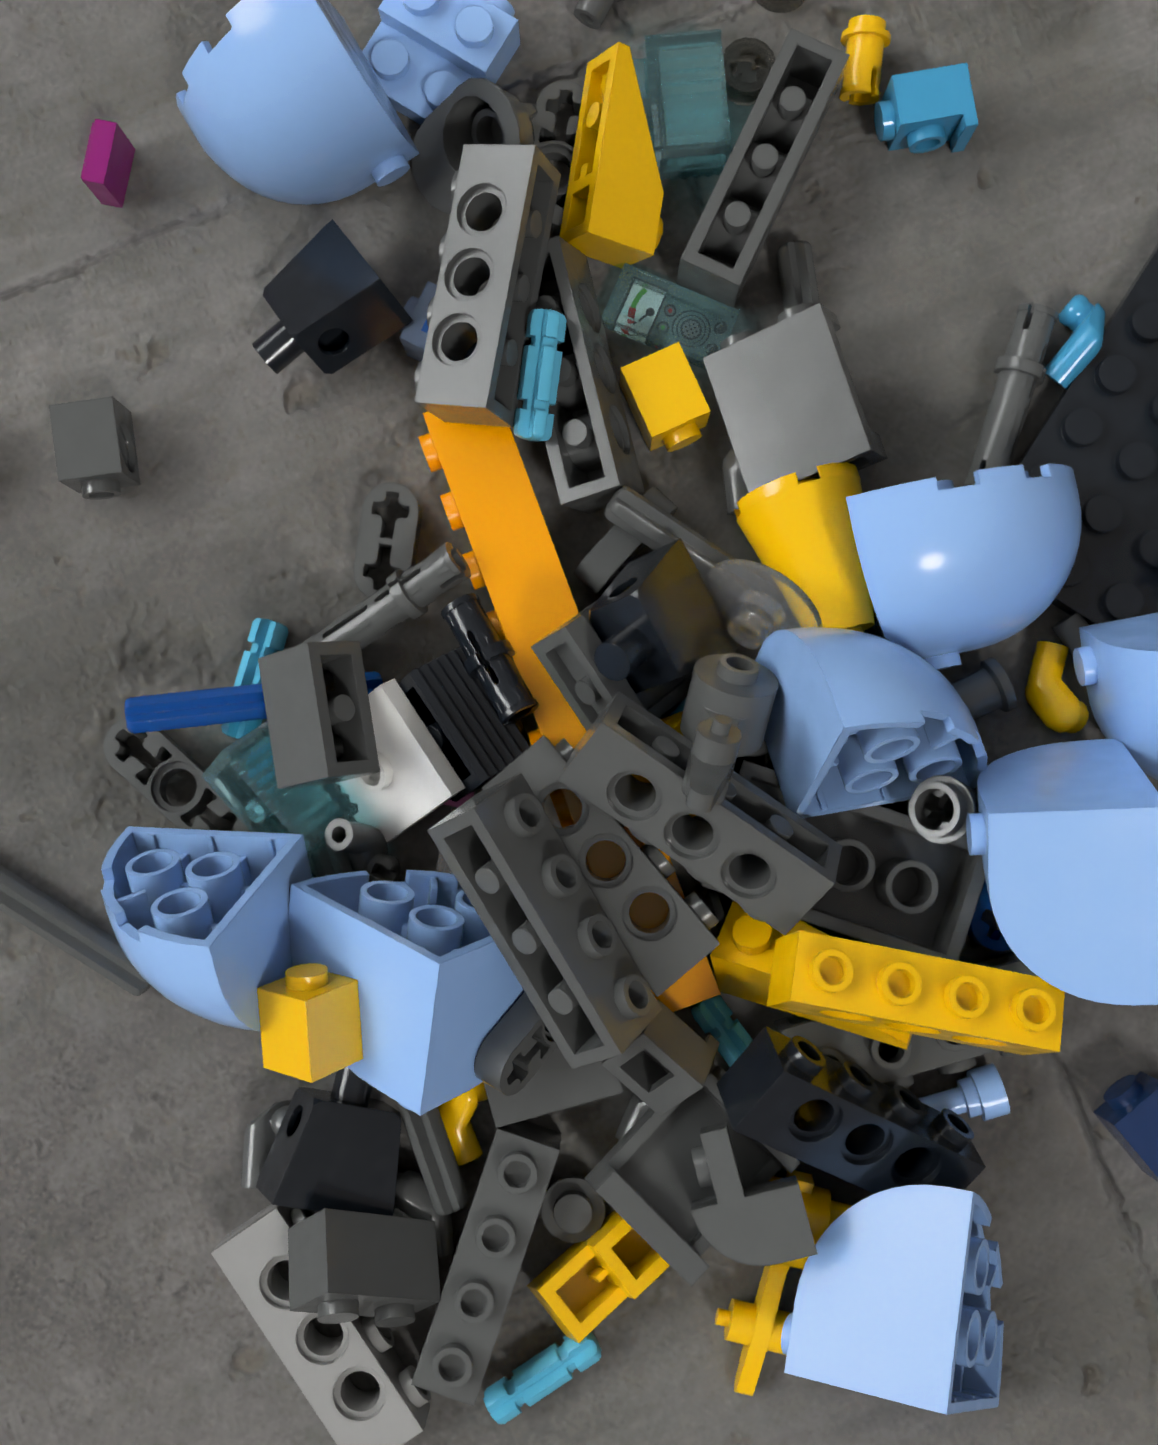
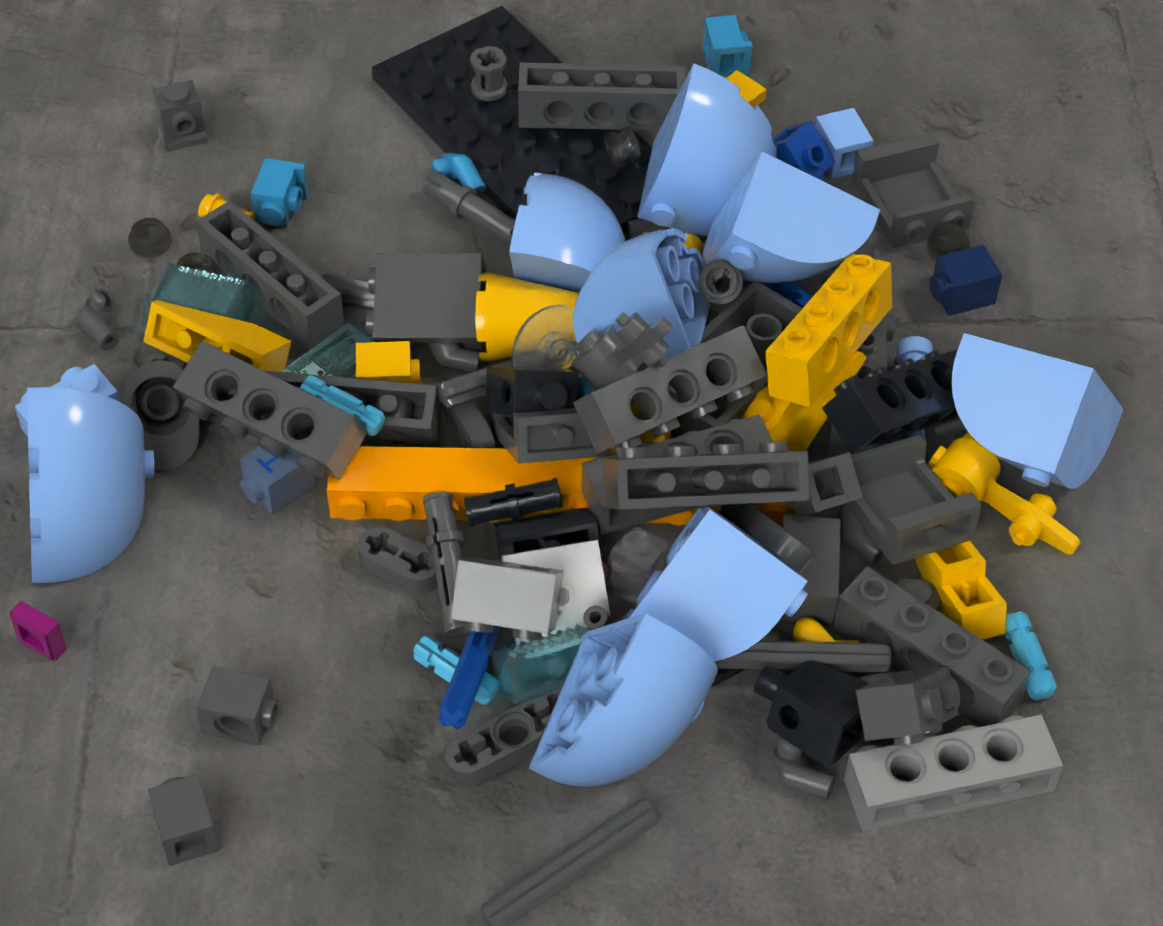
camera: 80 degrees left, 35 degrees down
(310, 1022) = (720, 631): yellow brick -> none
(328, 306) = (222, 519): black torso -> none
(752, 1223) = (942, 469): dark grey brick -> none

